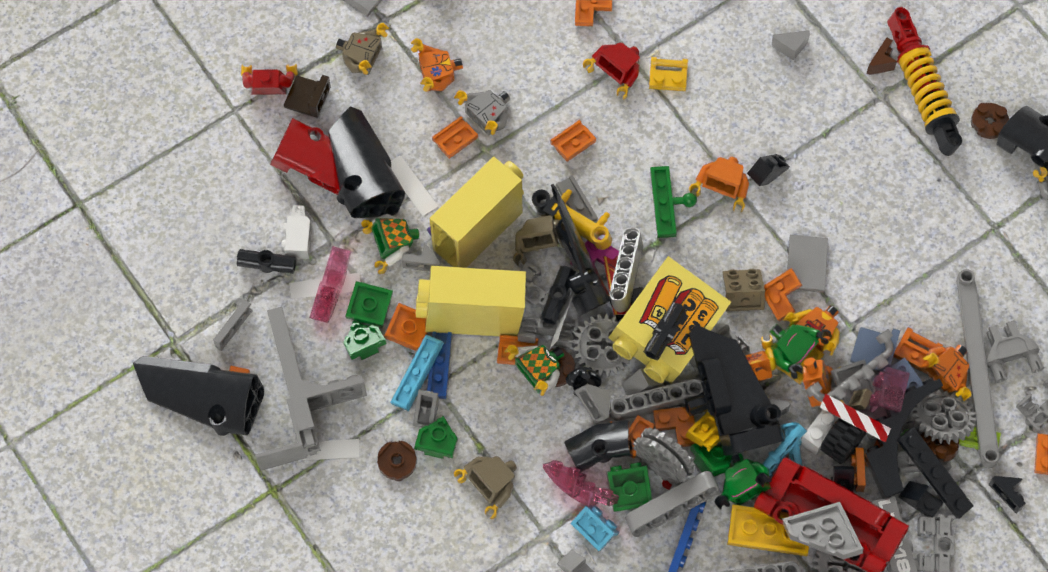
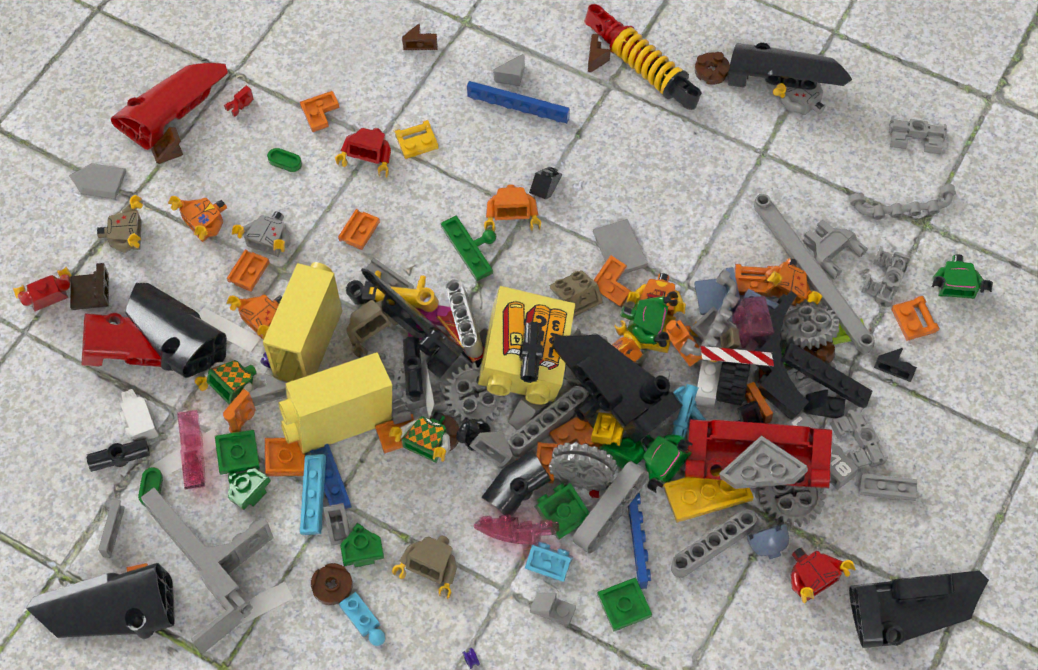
camera: 25 degrees left, 5 degrees down
(283, 298) = (150, 479): none -> green tile
(391, 267) = (242, 409): none -> orange plate
(409, 503) = (362, 619): none -> medium azure plate
(443, 180) = (256, 311): none -> orange torso
(537, 42) = (284, 159): none -> green tile
(782, 77) = (518, 102): none -> blue plate

